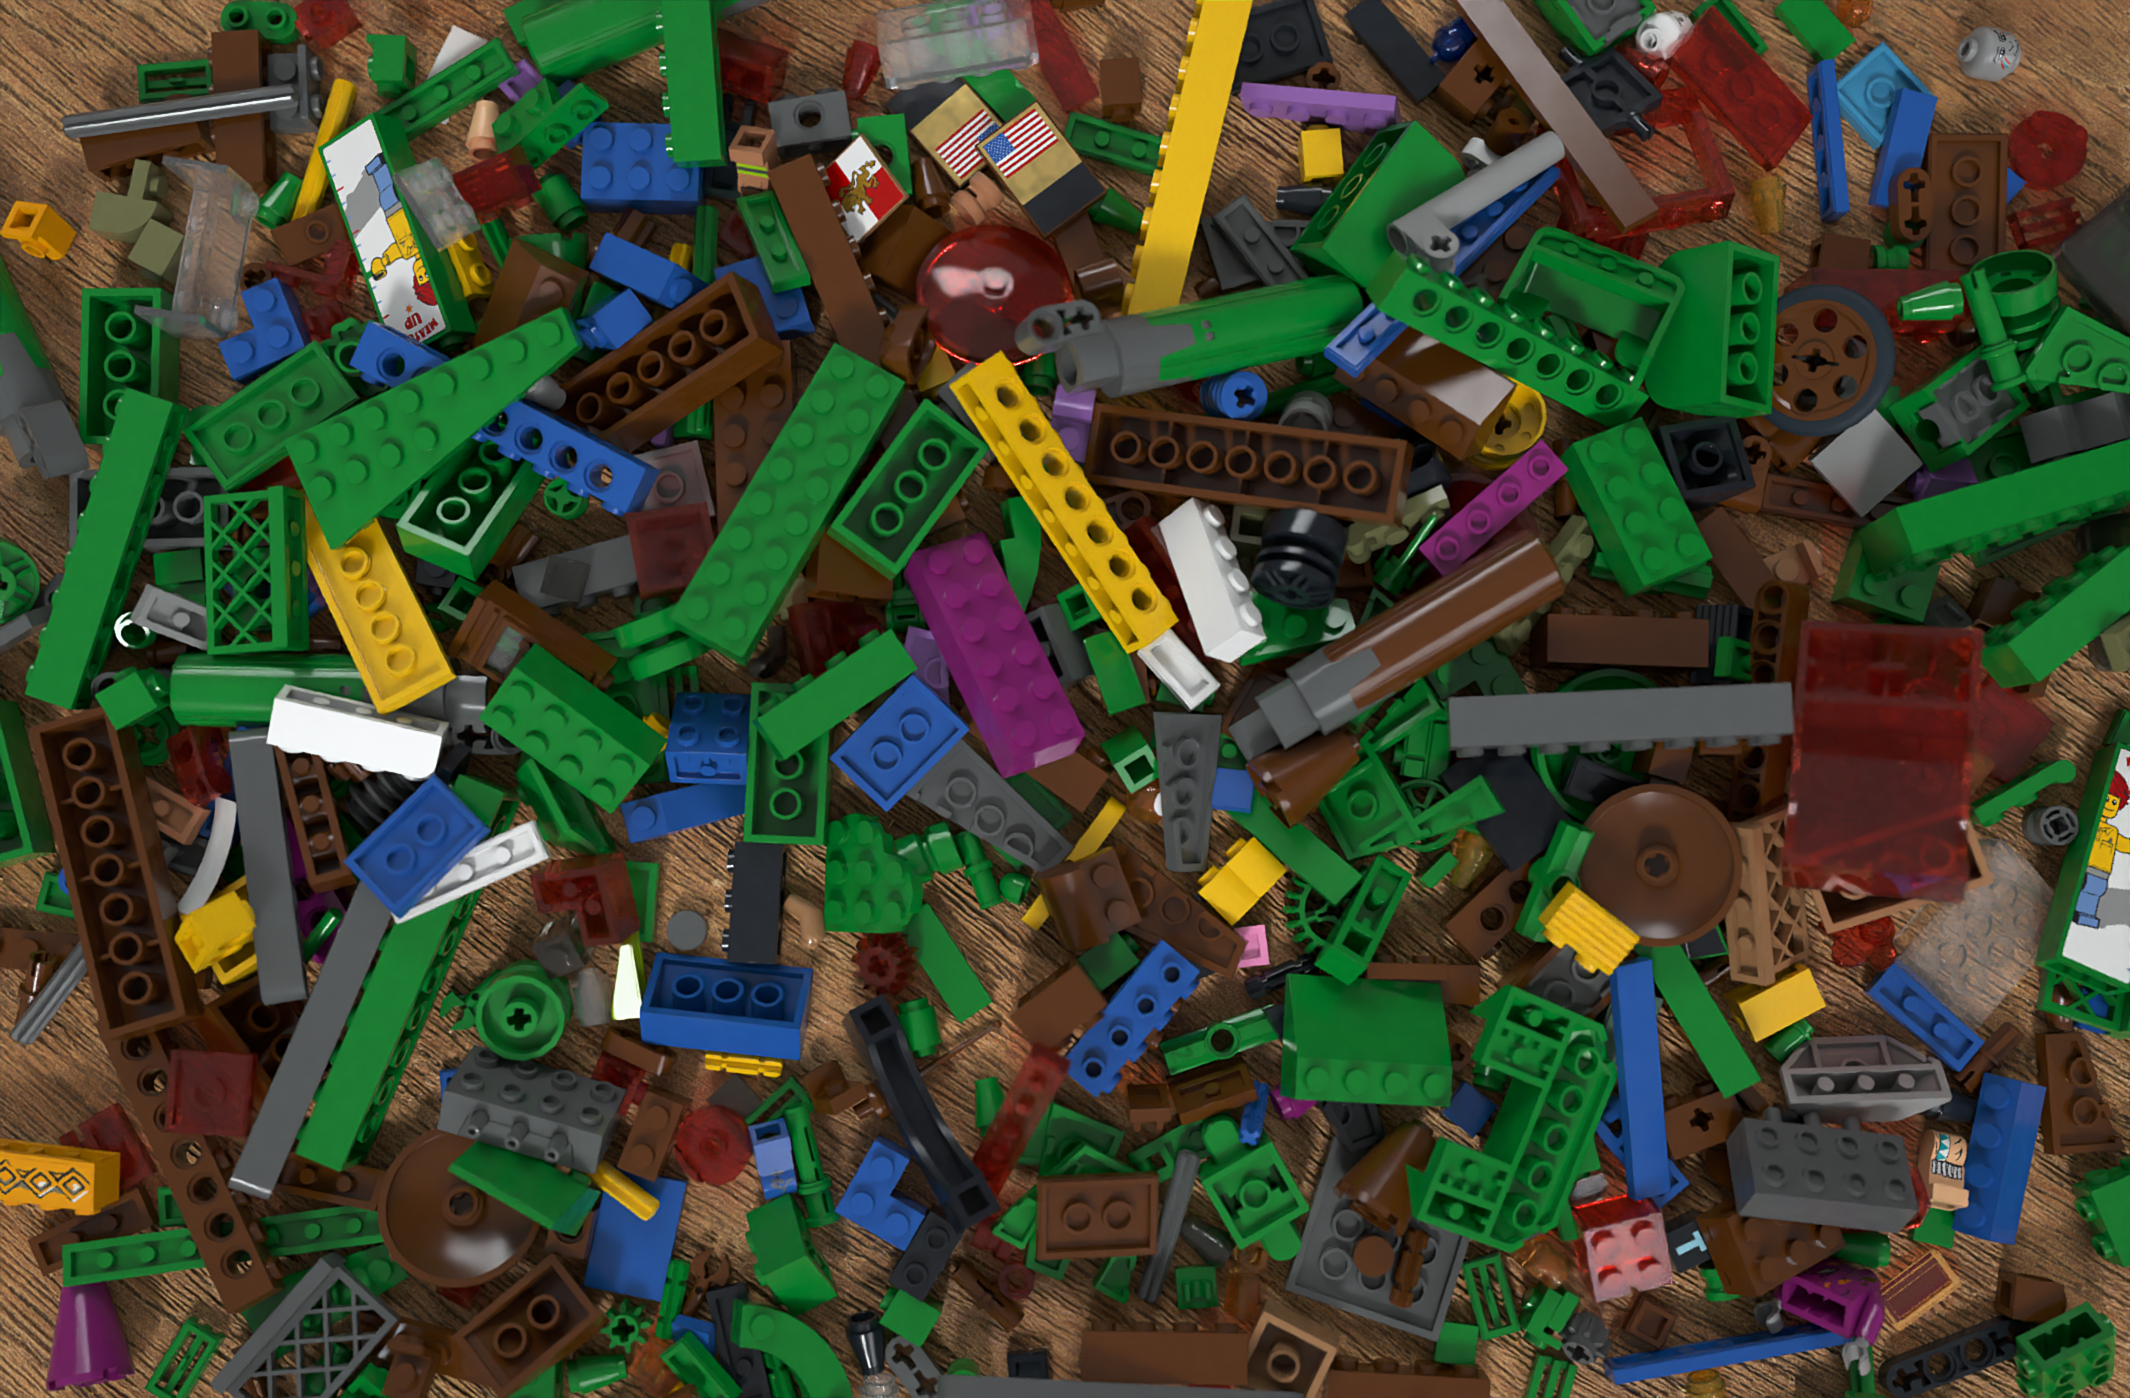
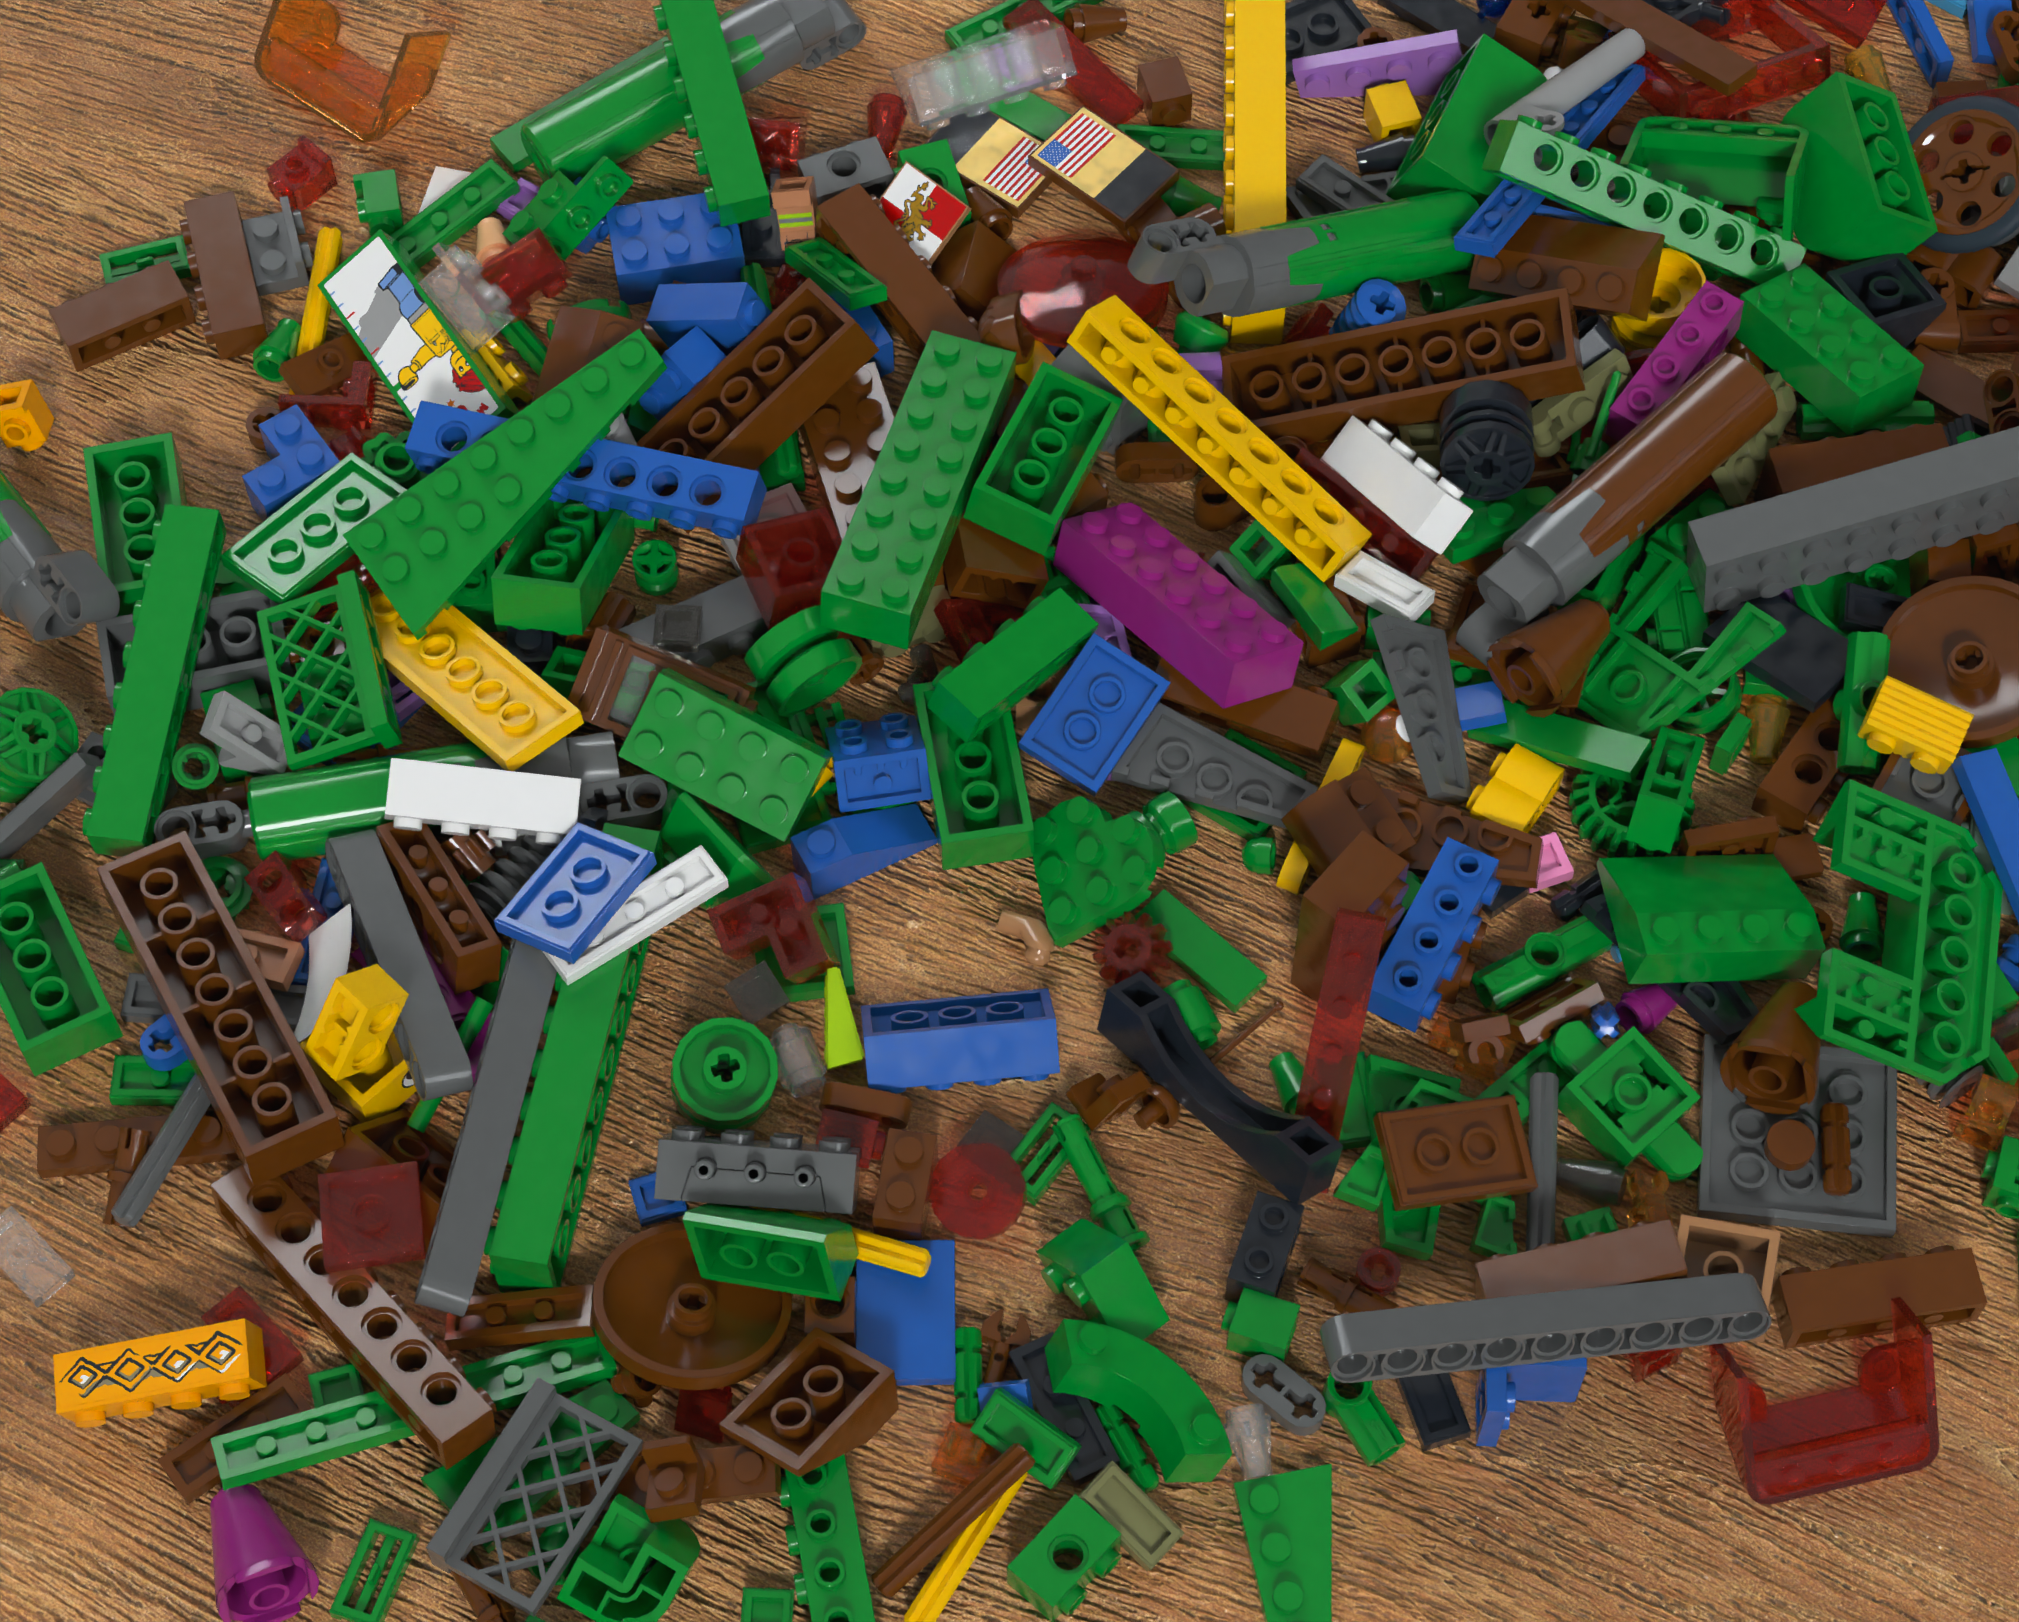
camera: 10 degrees left, 25 degrees down
(125, 217) = (119, 389): olive brick -> none
(134, 696) = (214, 816): green brick -> none
(158, 252) = (158, 410): olive brick -> none
(180, 111) = (164, 271): dark grey axle -> none
(210, 253) = (220, 391): clear windscreen -> none
(261, 16) = (249, 189): green plate -> none
(455, 999) = (650, 1099): green bar -> none
(560, 202) = (587, 286): green brick -> none
(595, 1371) = (892, 1474): green cone -> none
(620, 1334) = (927, 1398): green gear -> none
(687, 930) = (891, 974): dark grey tile -> none
(744, 1063) = (992, 1099): yellow axle -> none
(755, 902) = (966, 923): black brick -> none
(773, 1158) = (1055, 1185): blue leg -> none
(867, 1341) = (1218, 1372): black cone -> none
(875, 1202) = (1187, 1208): blue brick -> none
(977, 198) = (1043, 209): nougat wheel -> none
(978, 870) = (1215, 846): green pin -> none
(986, 1240) = (1340, 1222): clear red wheel -> none
(1021, 548) = (1173, 501): green slope -> none
(1456, 1343) = (1918, 1232): green tile -> none
(1480, 1261) = (1925, 1187): green tile -> none

